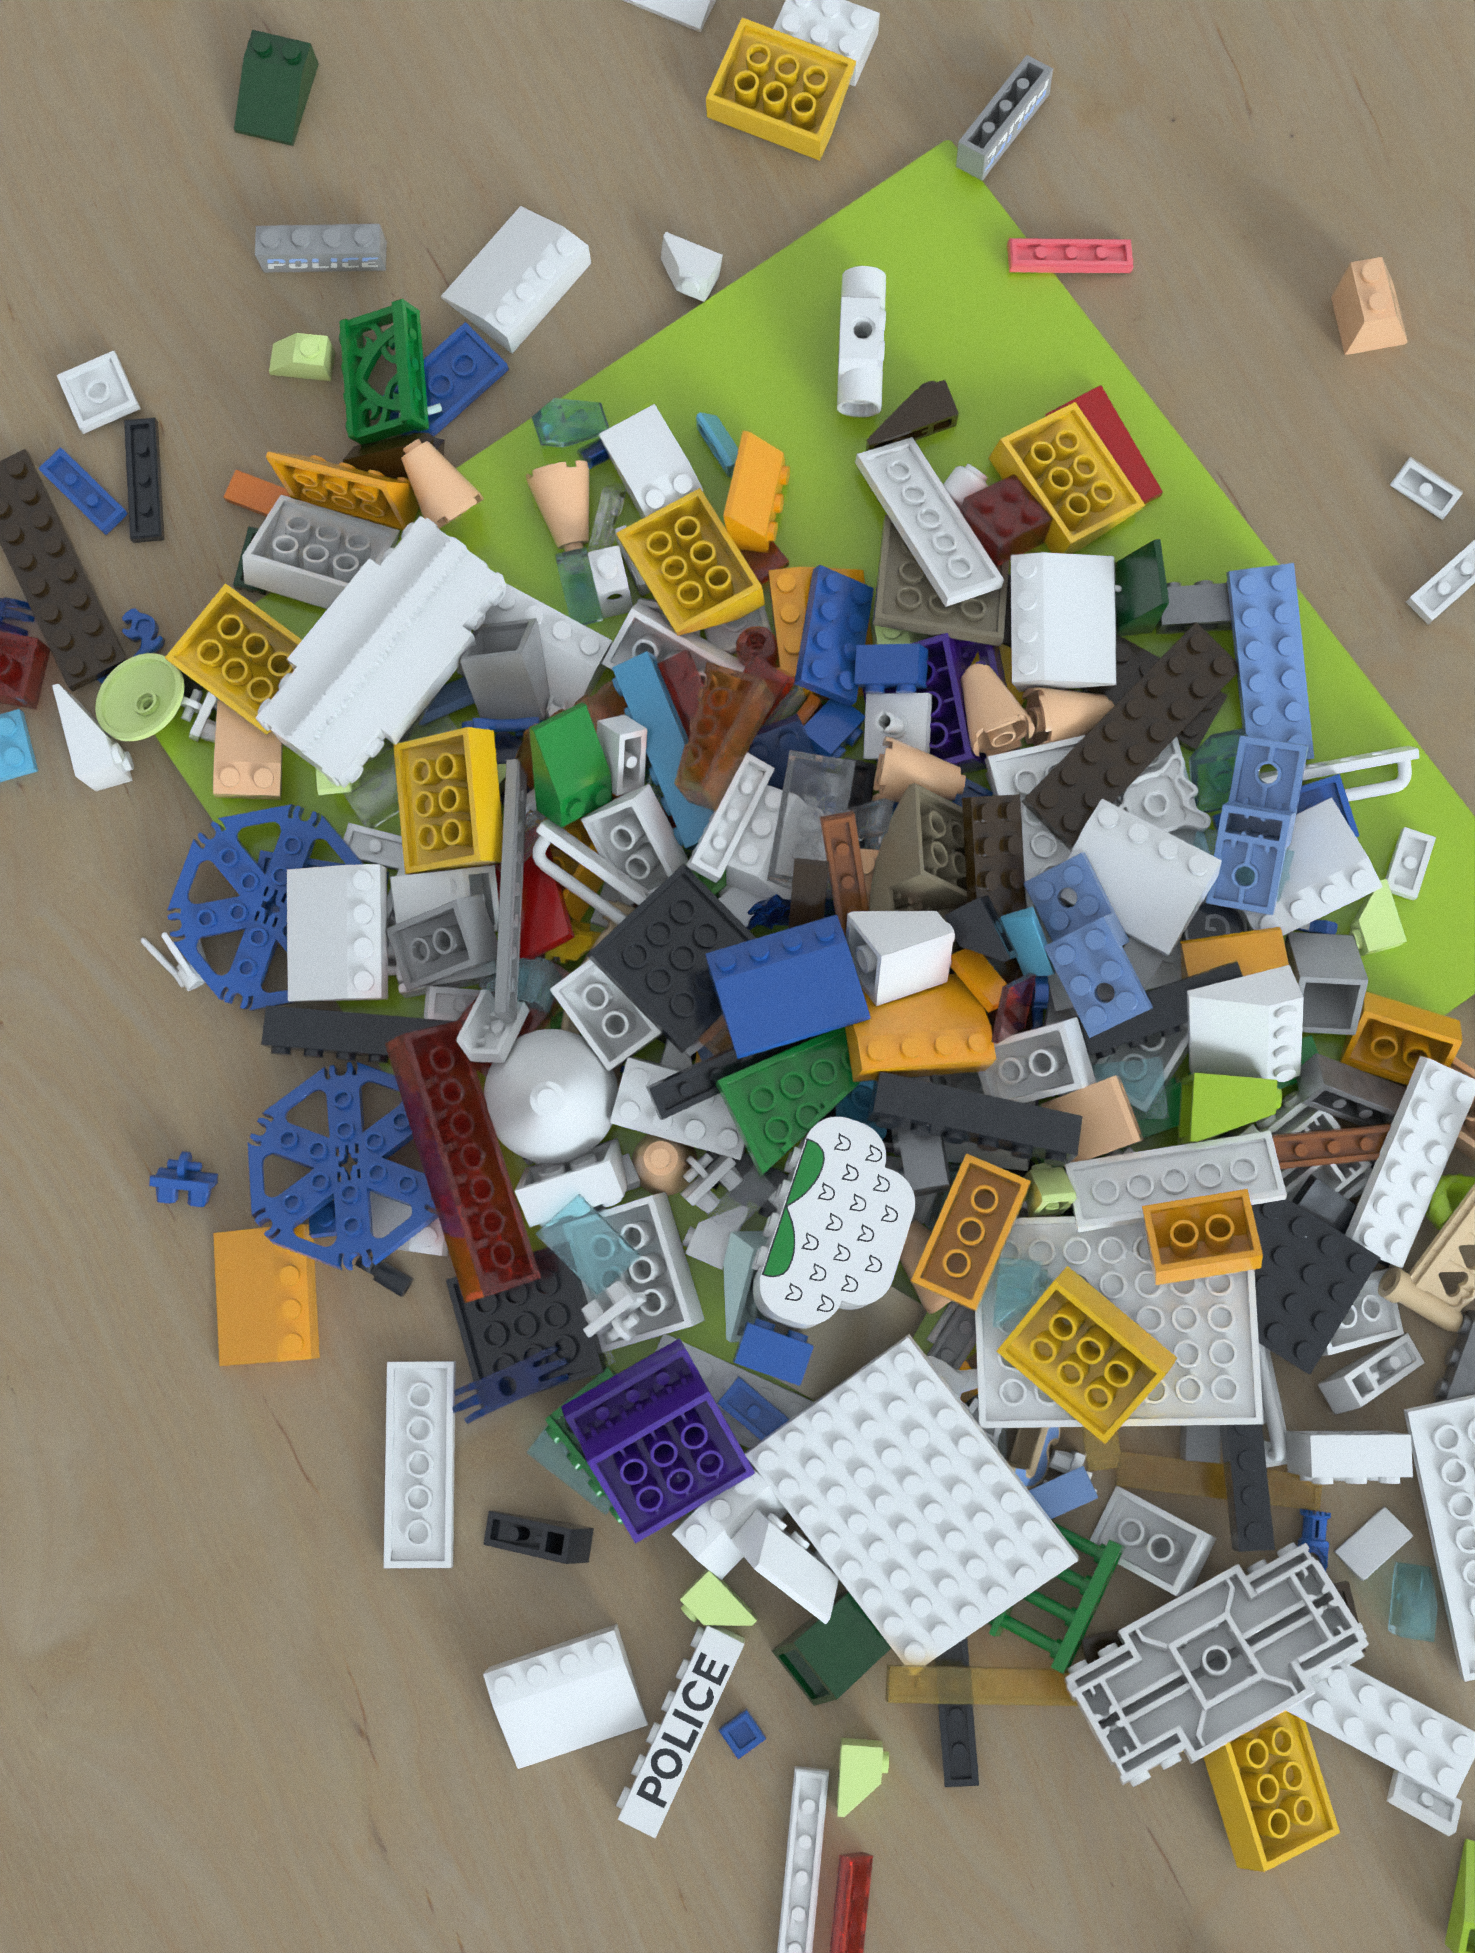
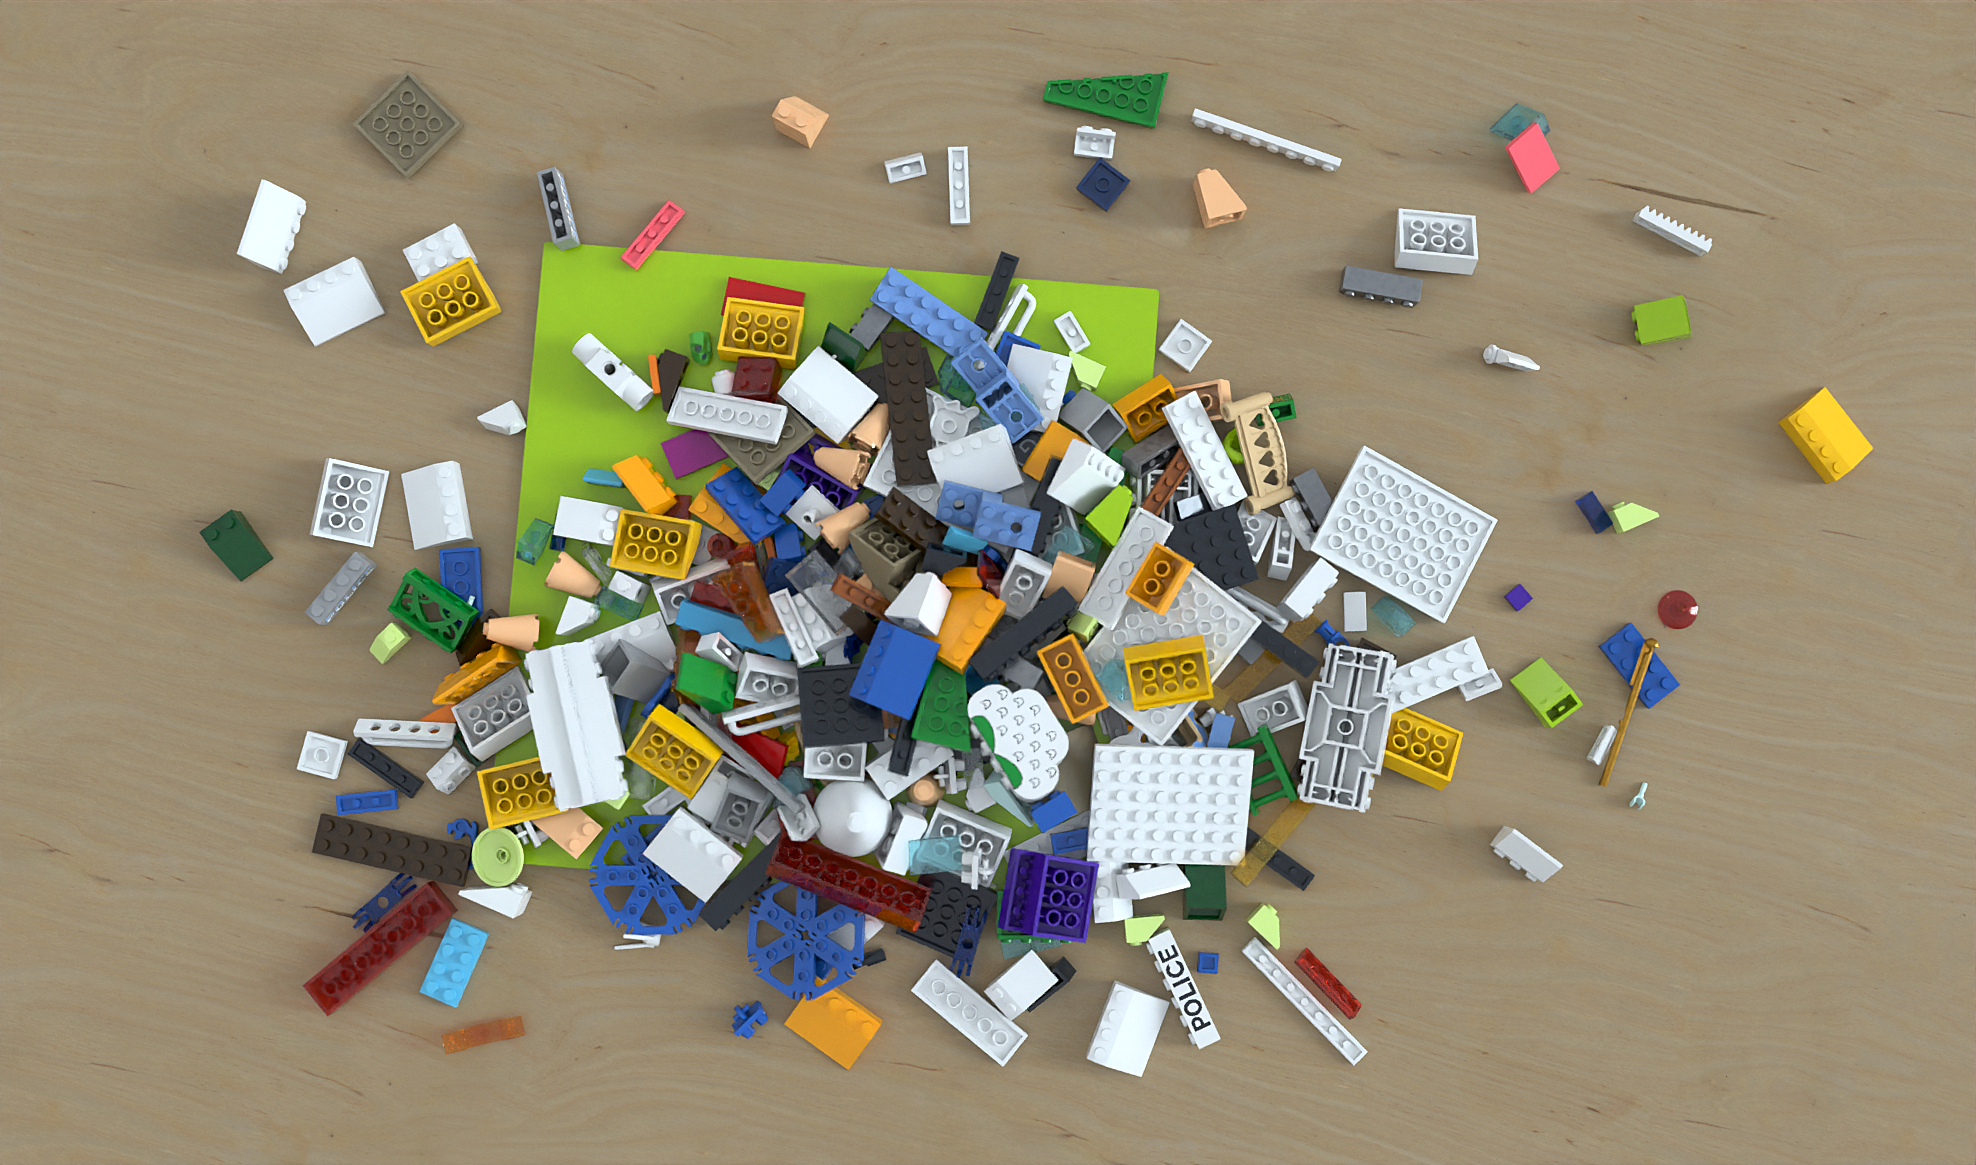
camera: 55 degrees left, 5 degrees up
(202, 558) = (450, 771): none -> white bracket
(245, 511) = (403, 737): none -> white piece
(434, 173) = (349, 502): none -> white slope
(509, 1502) = (1020, 985): none -> white slope
(520, 547) = (577, 616): none -> white slope
(843, 521) = (692, 452): none -> magenta tile
(911, 384) = (654, 371): none -> orange tile
(984, 422) = (700, 347): none -> bright green rock
(1376, 725) = (996, 291): none -> black plate
(1424, 1367) = (1298, 522): none -> white hinge

